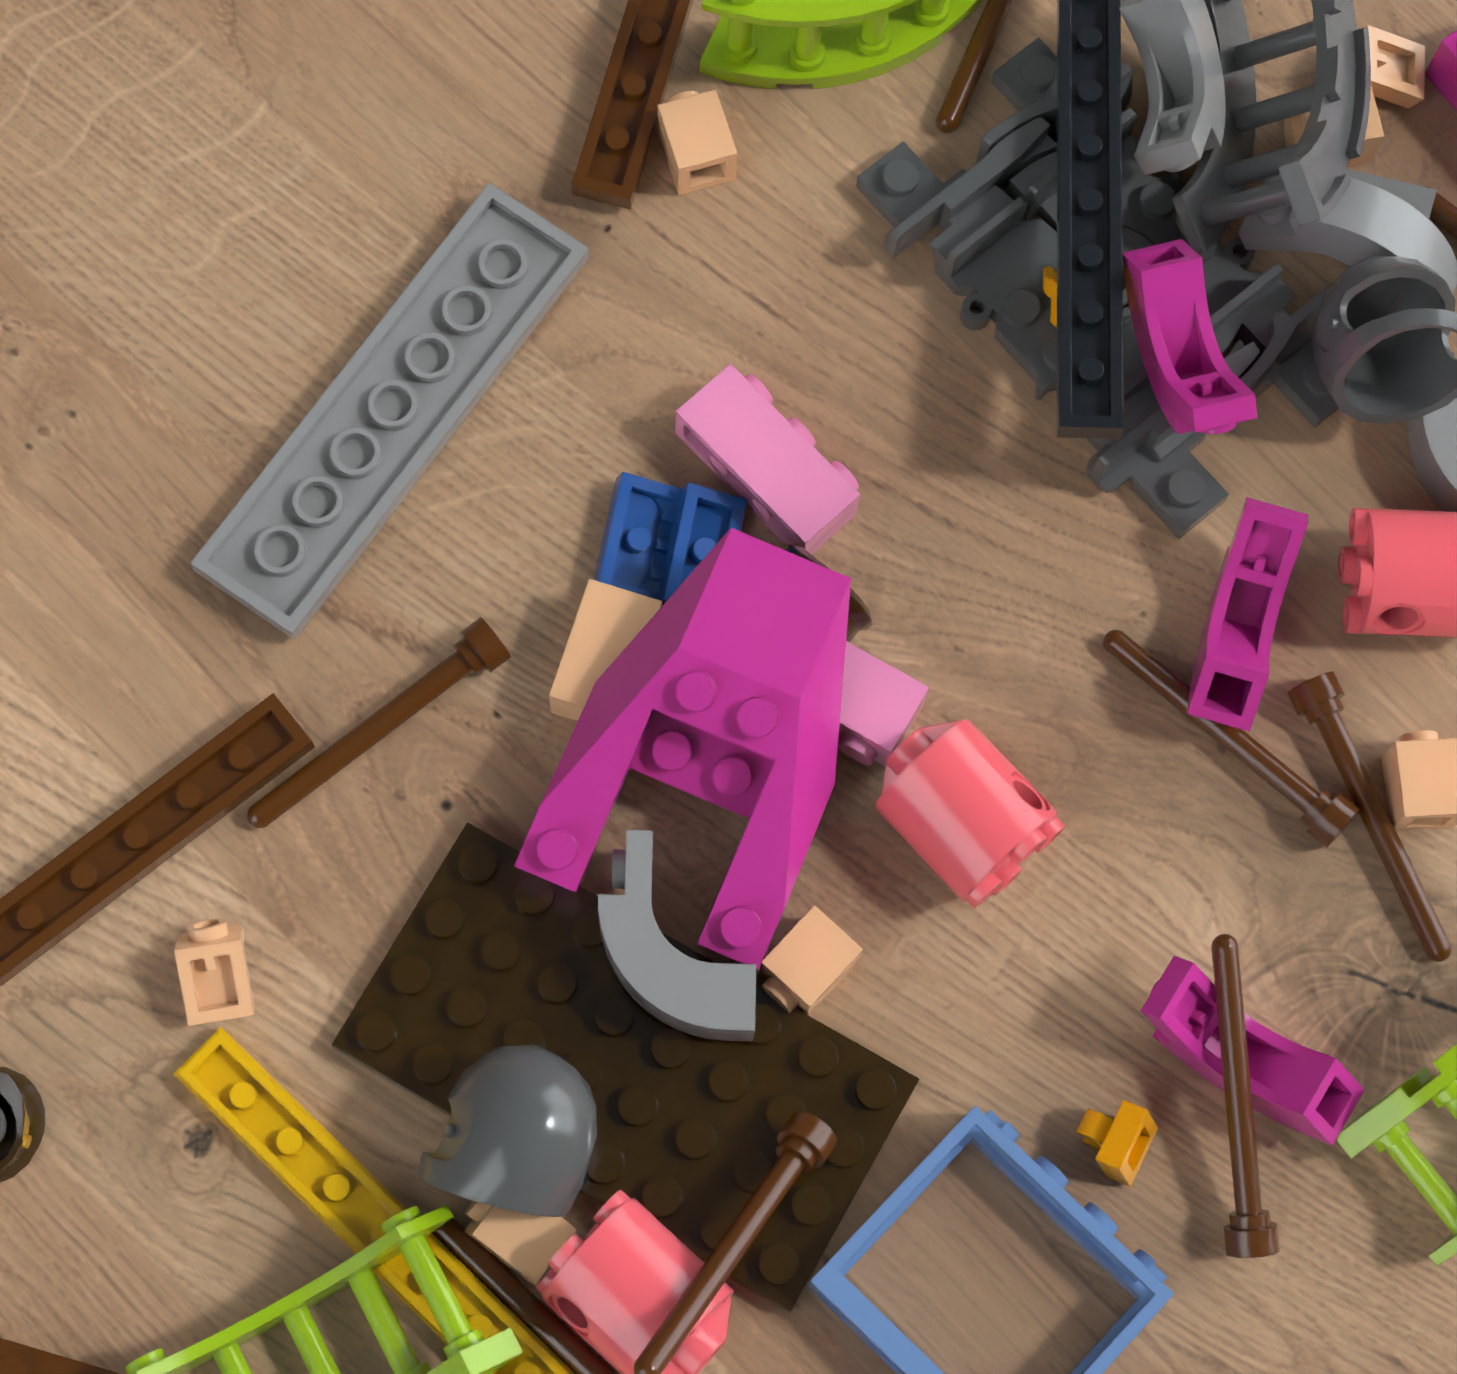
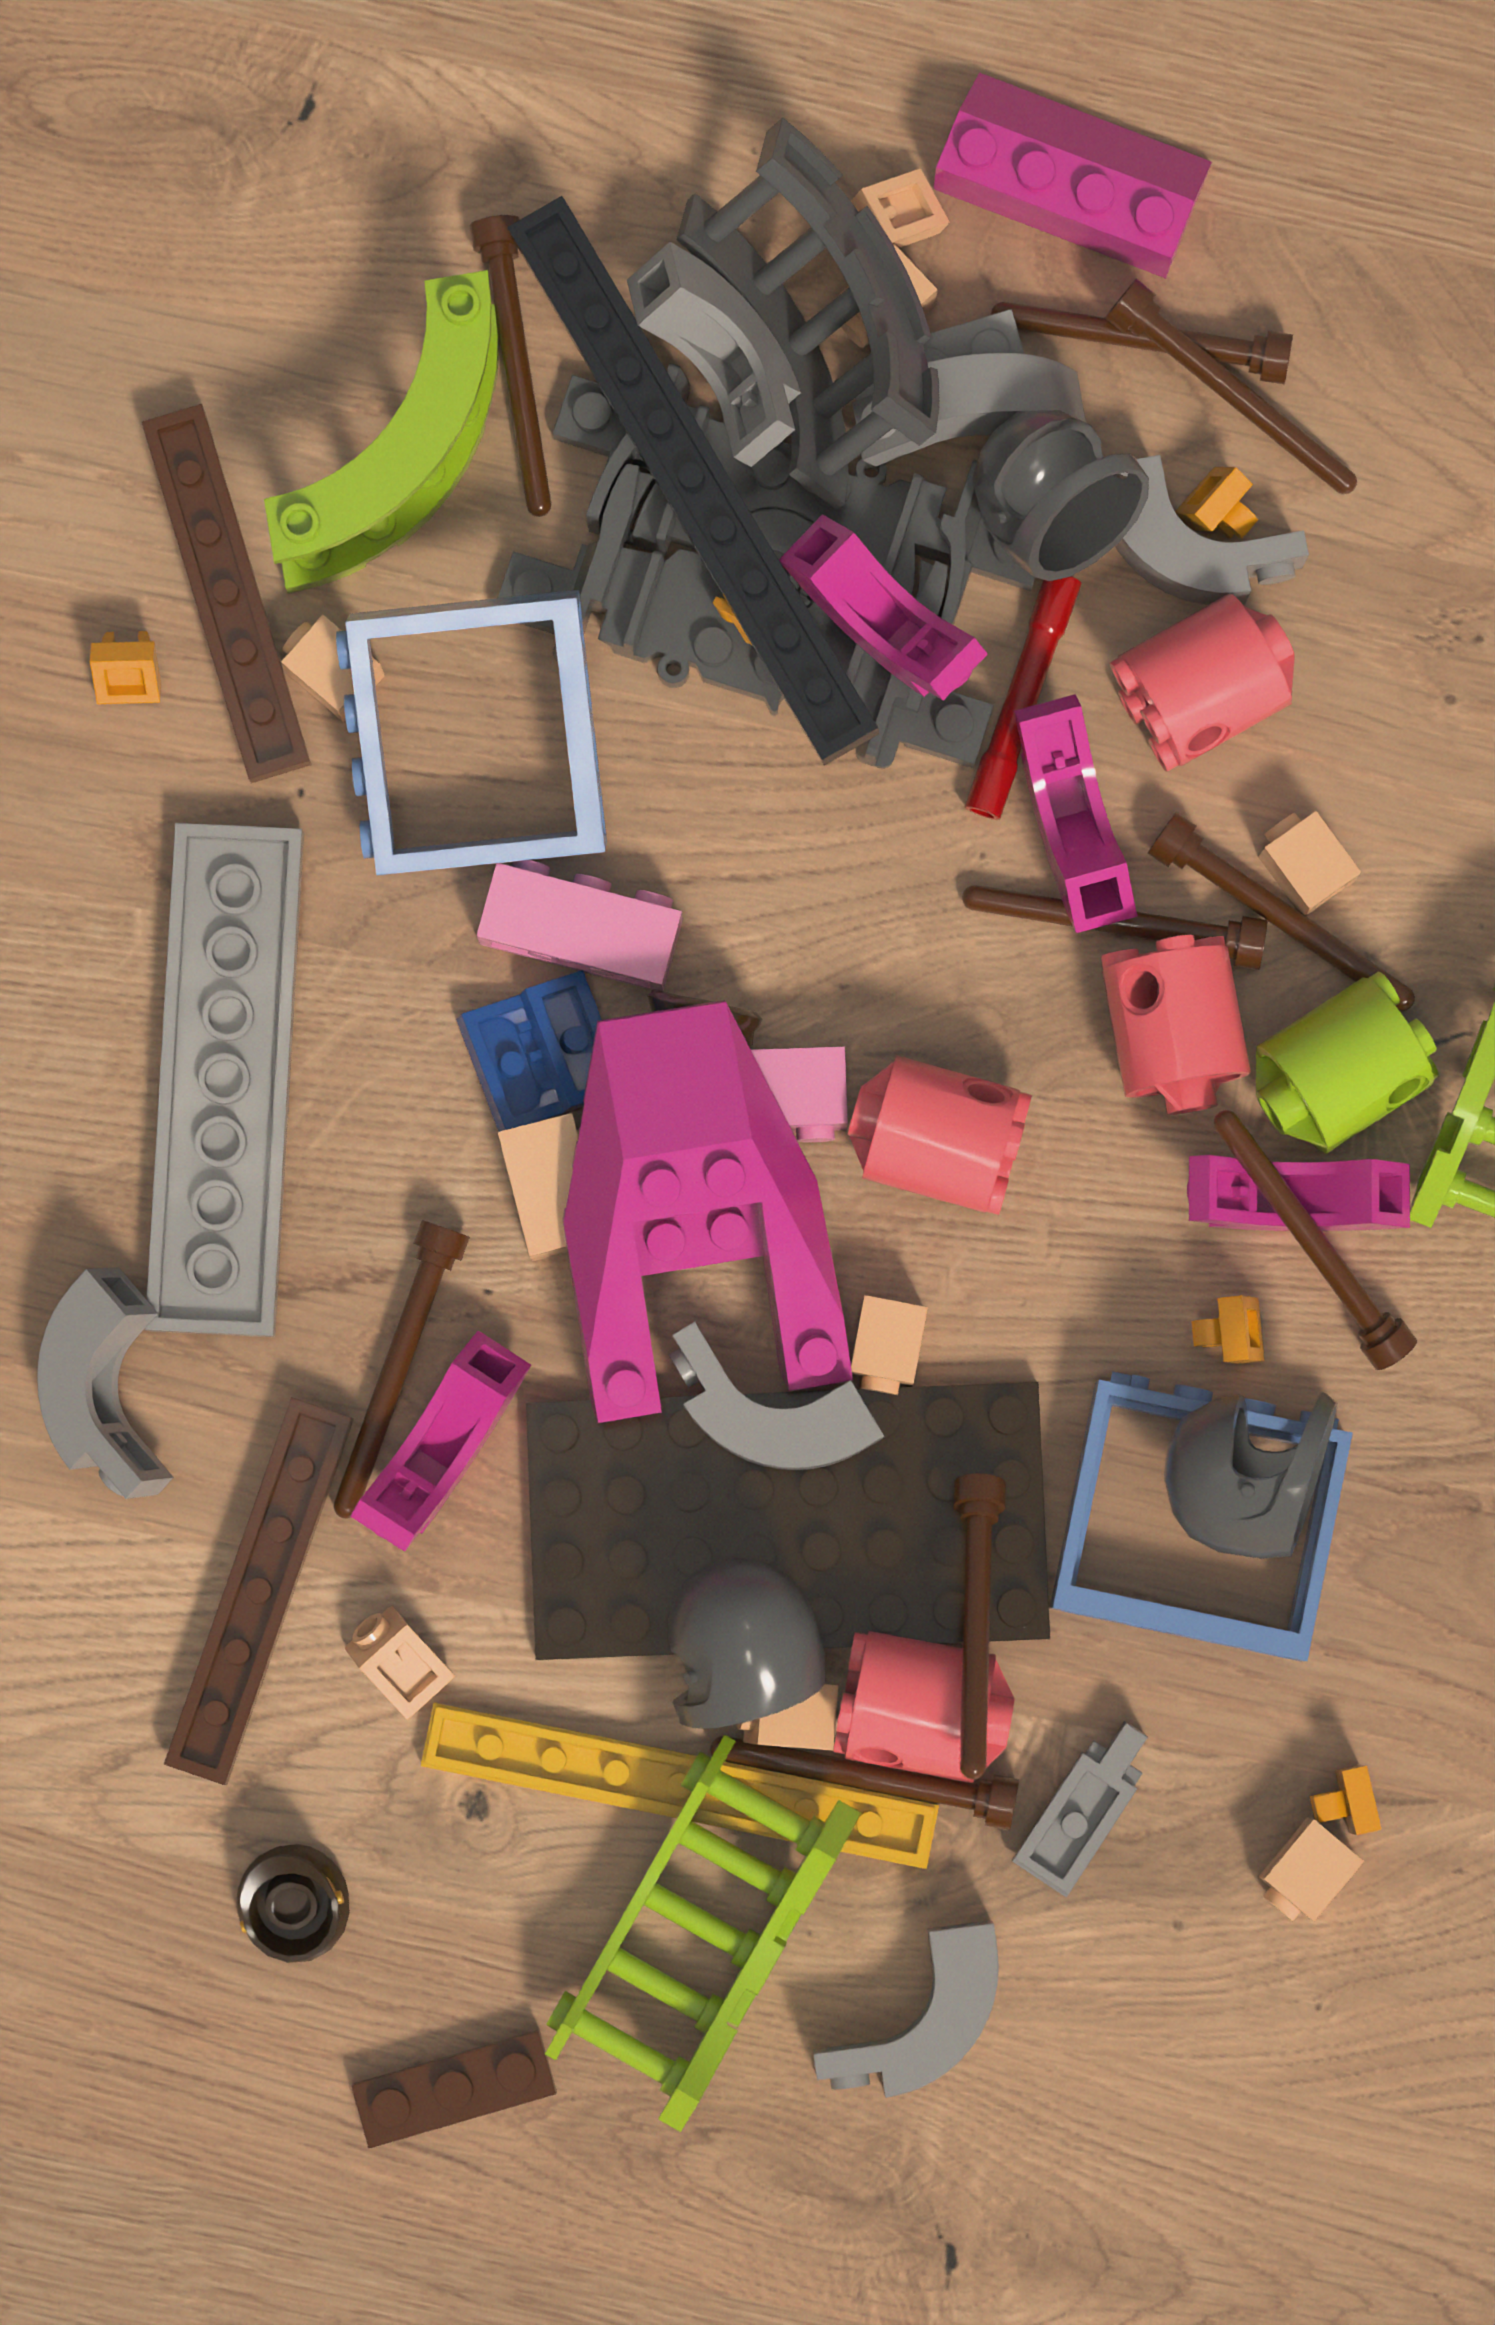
camera: 25 degrees left, 10 degrees up
(109, 570) = (80, 1382): none -> light grey arch
(375, 811) = (442, 1442): none -> dark pink arch
(527, 46) = (125, 670): none -> light orange tile
(873, 283) = (370, 769): none -> window
(1038, 1281) = (1236, 1493): none -> dark grey piece
(1230, 840) = (1176, 1021): none -> coral cylinder
(1310, 461) = (1000, 760): none -> red piece
(1357, 967) = (1343, 1065): none -> lime cylinder

